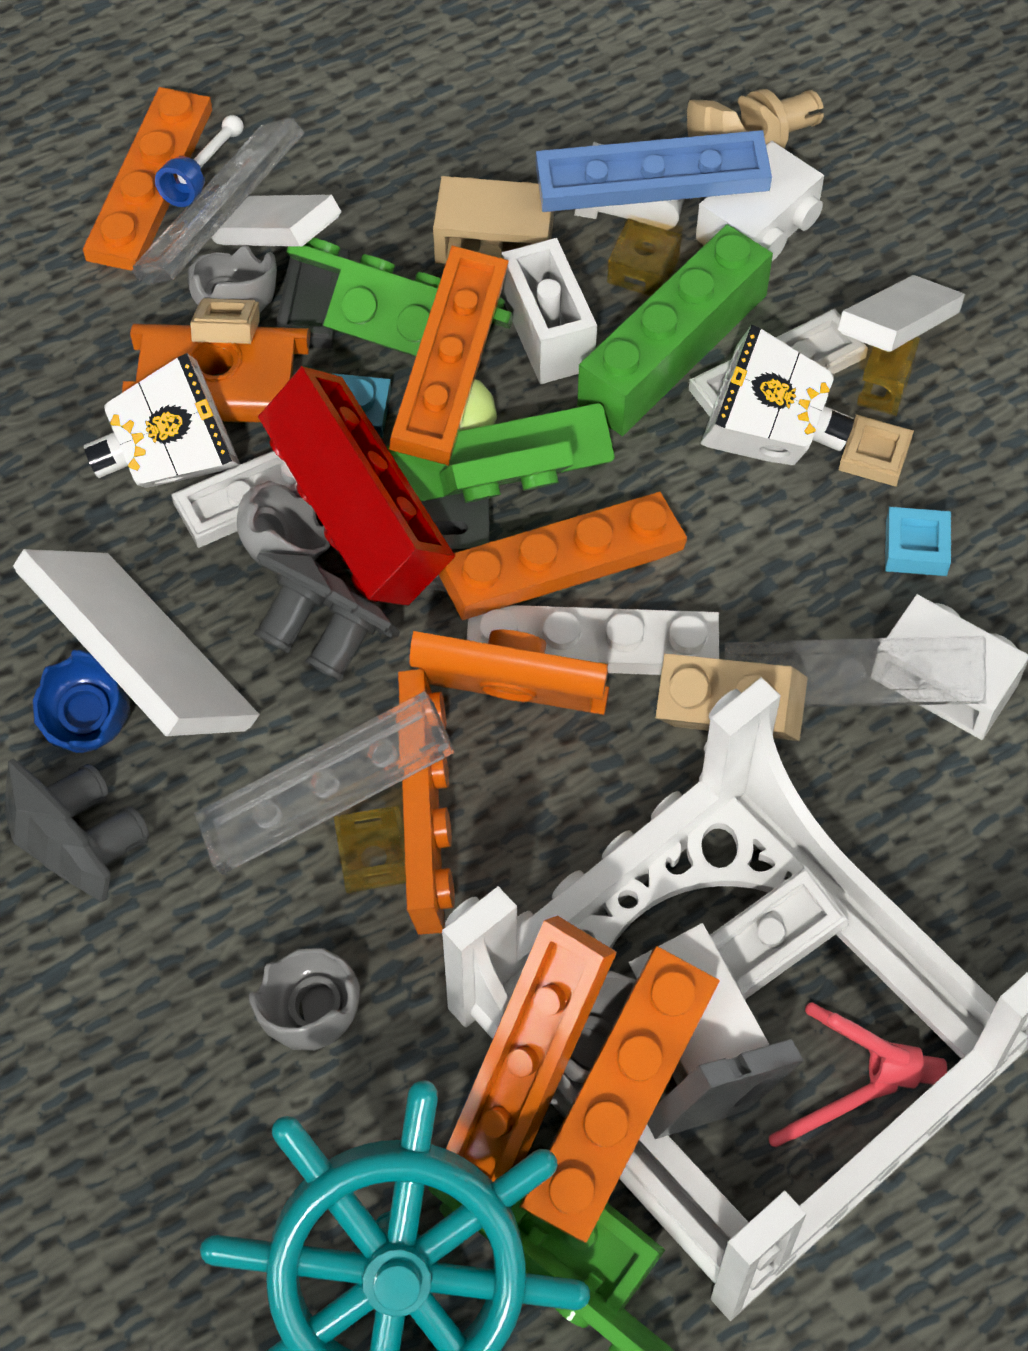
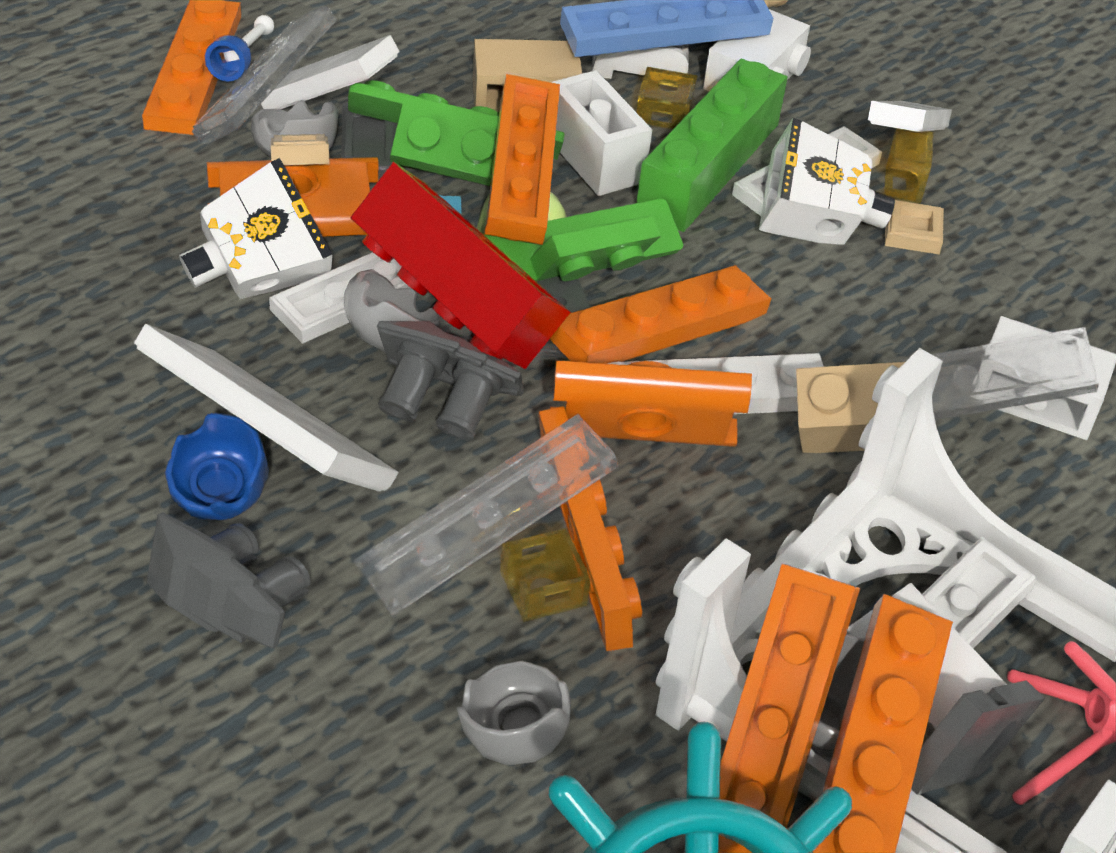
camera: 15 degrees left, 15 degrees down
(918, 541) = (978, 287): medium azure plate -> none

